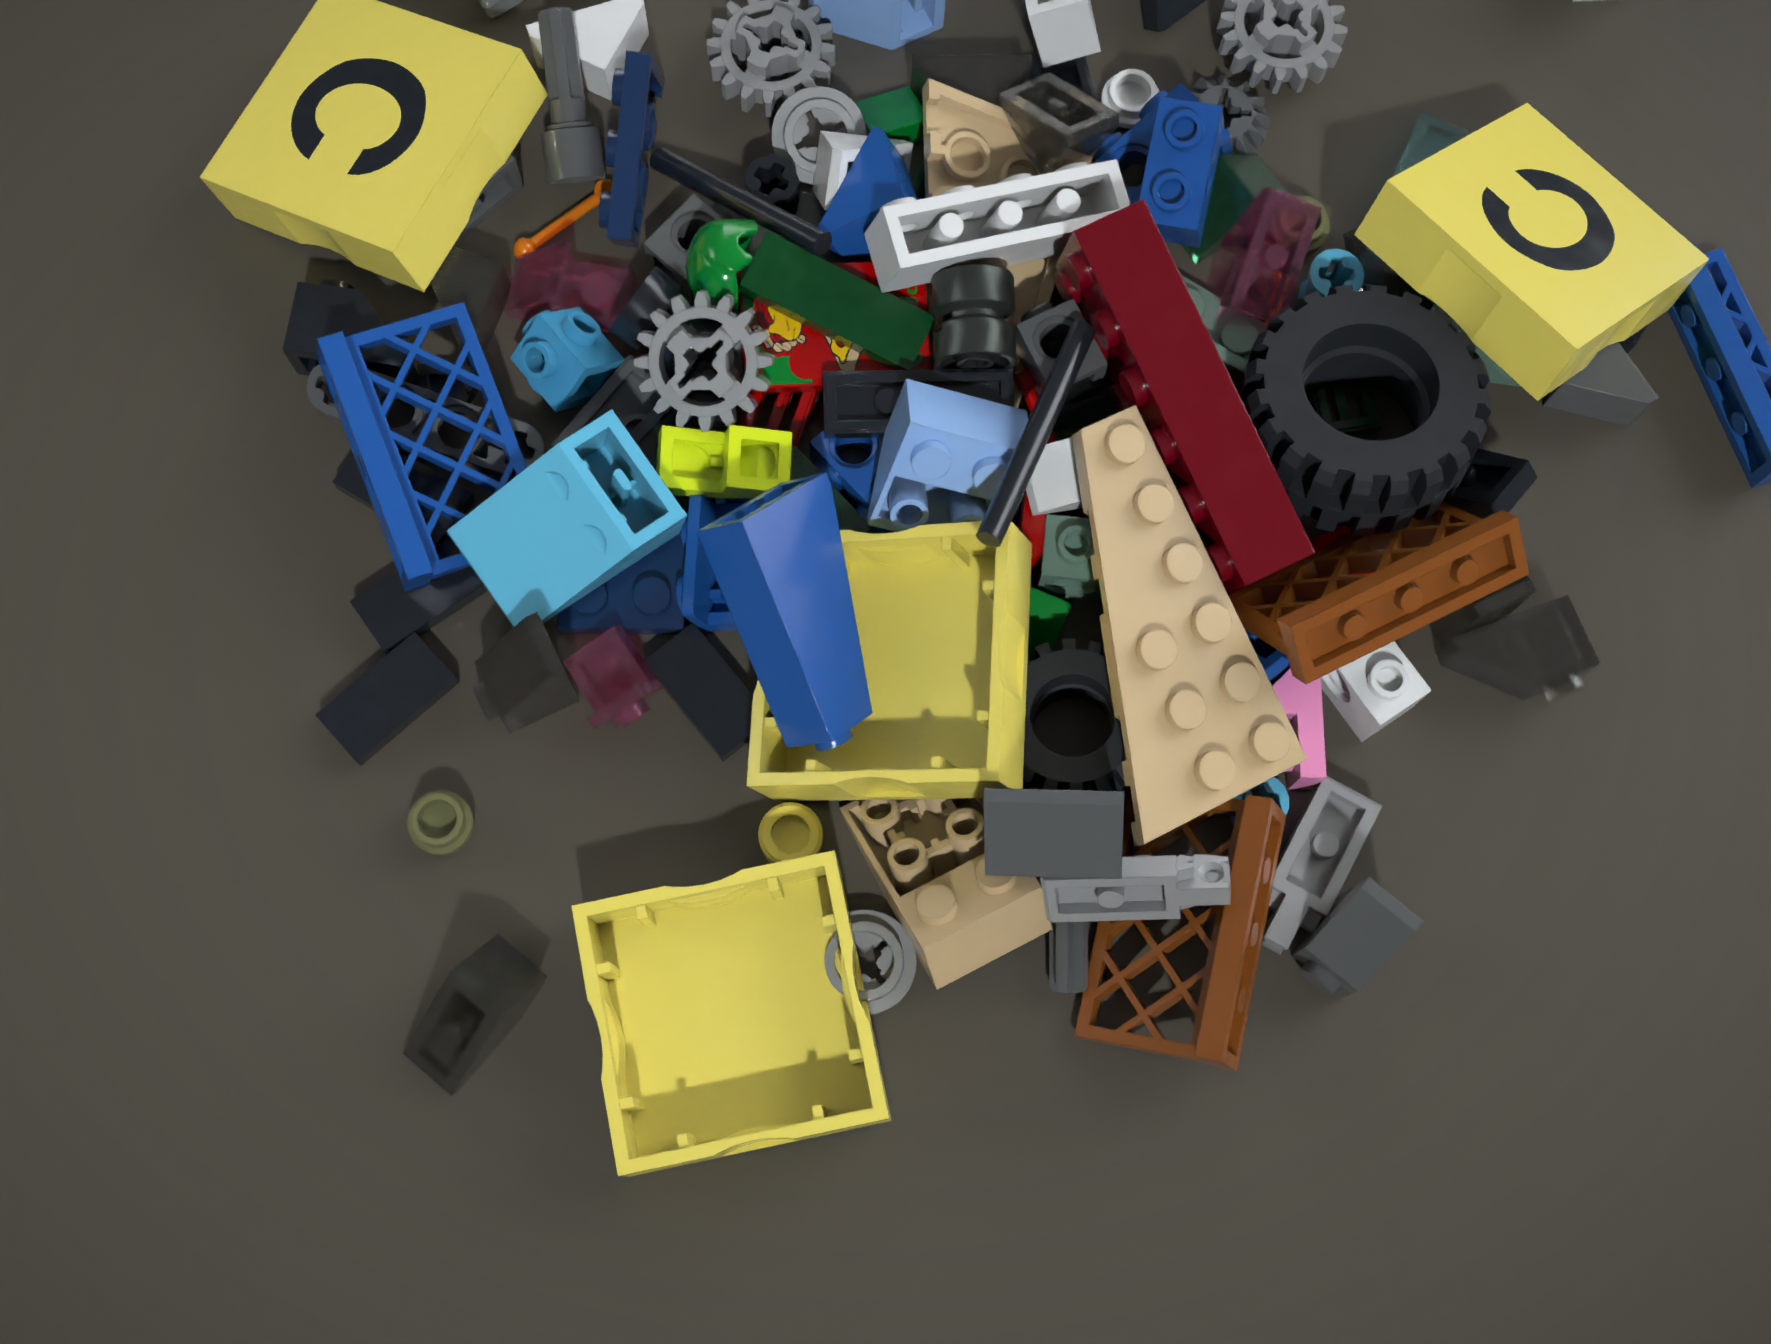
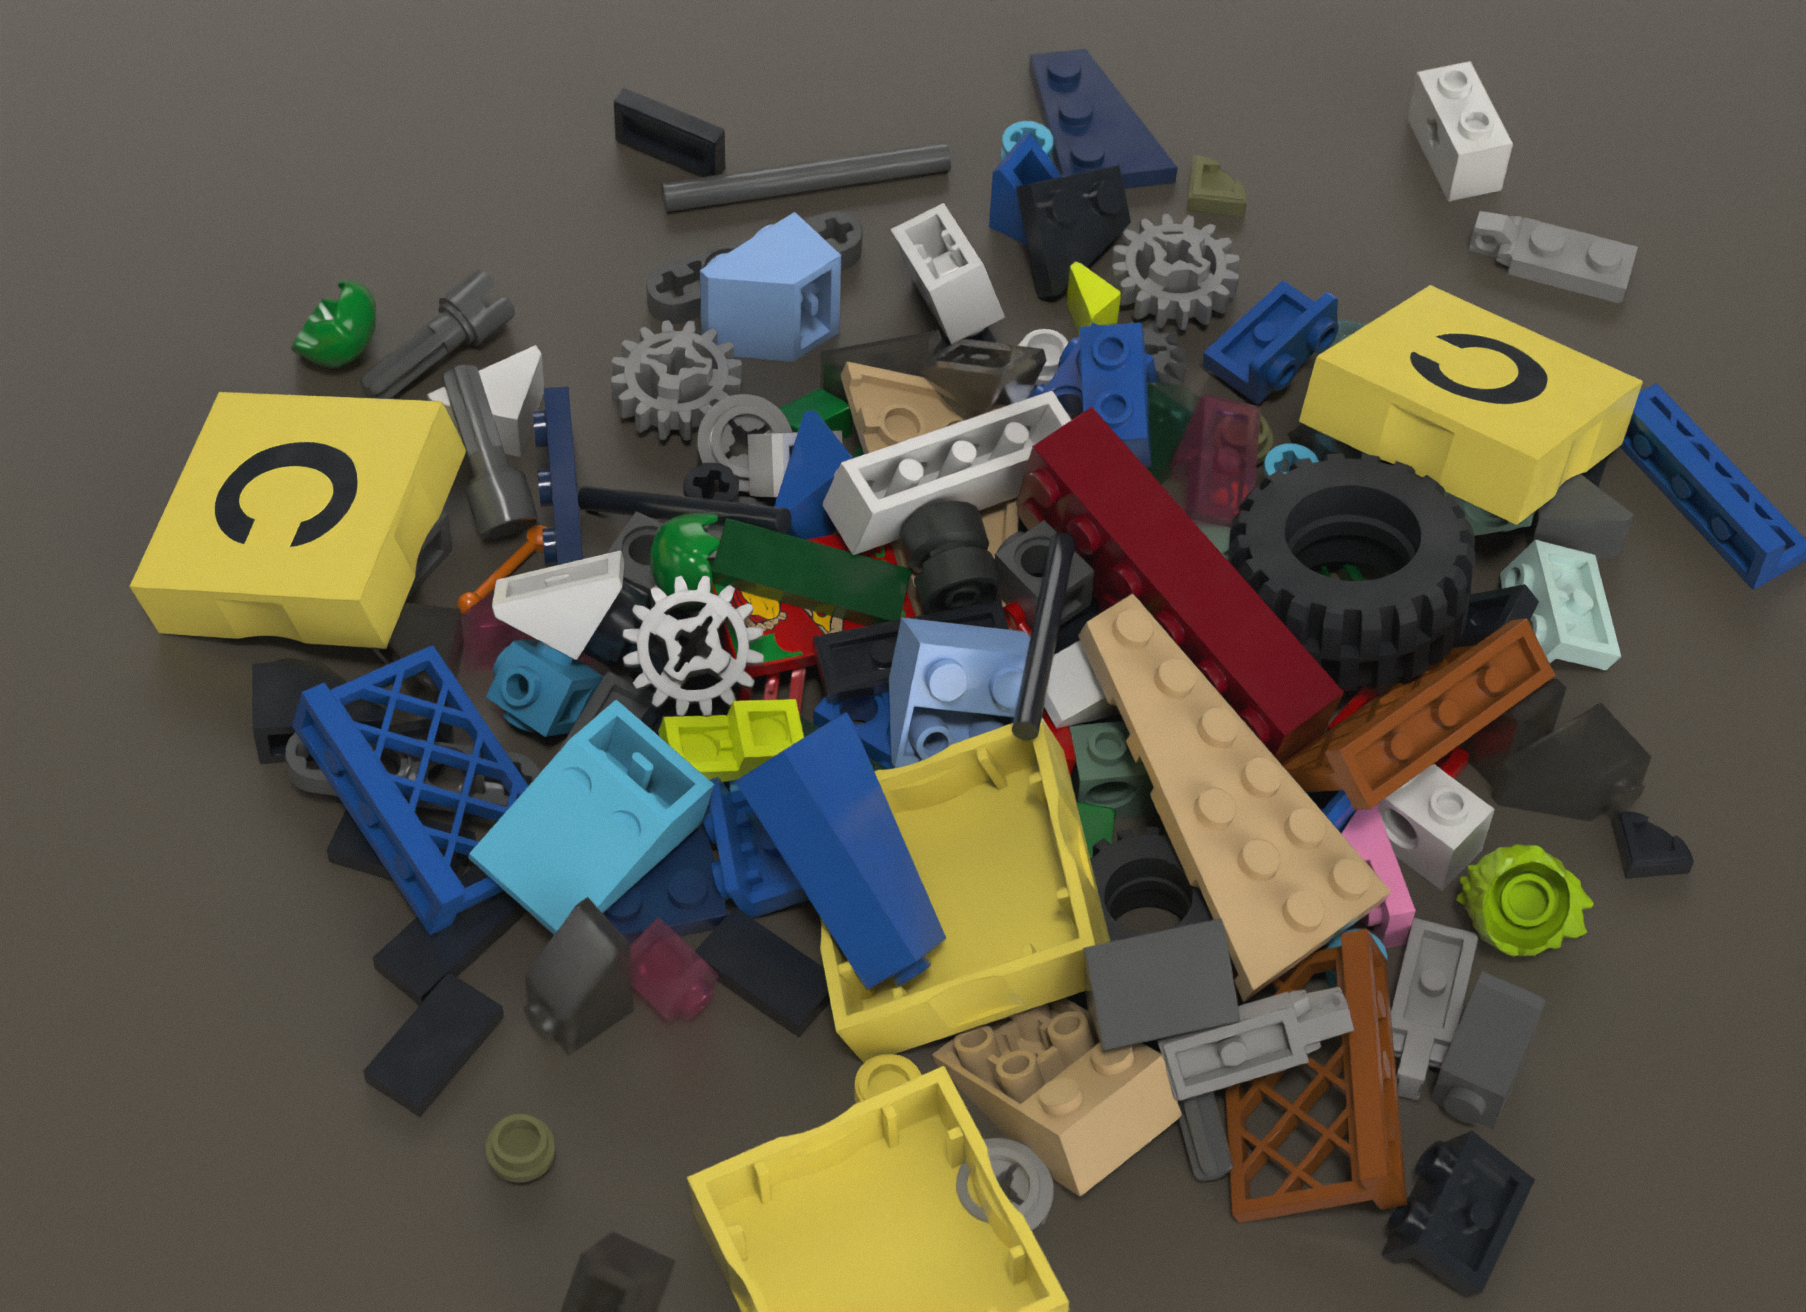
camera: 10 degrees left, 20 degrees down
(589, 283) = (561, 601): none -> white slope
(1191, 49) = (1091, 298): none -> neon yellow slope
(1284, 1084) = (1459, 1211): none -> black bracket
(1356, 127) = (1273, 341): none -> blue bracket
(1432, 784) = (1523, 900): none -> lime hair
(1570, 469) = (1572, 605): none -> light aqua bracket
(1570, 742) = (1647, 848): none -> black tile
(1663, 85) = (1555, 255): none -> light grey hinge

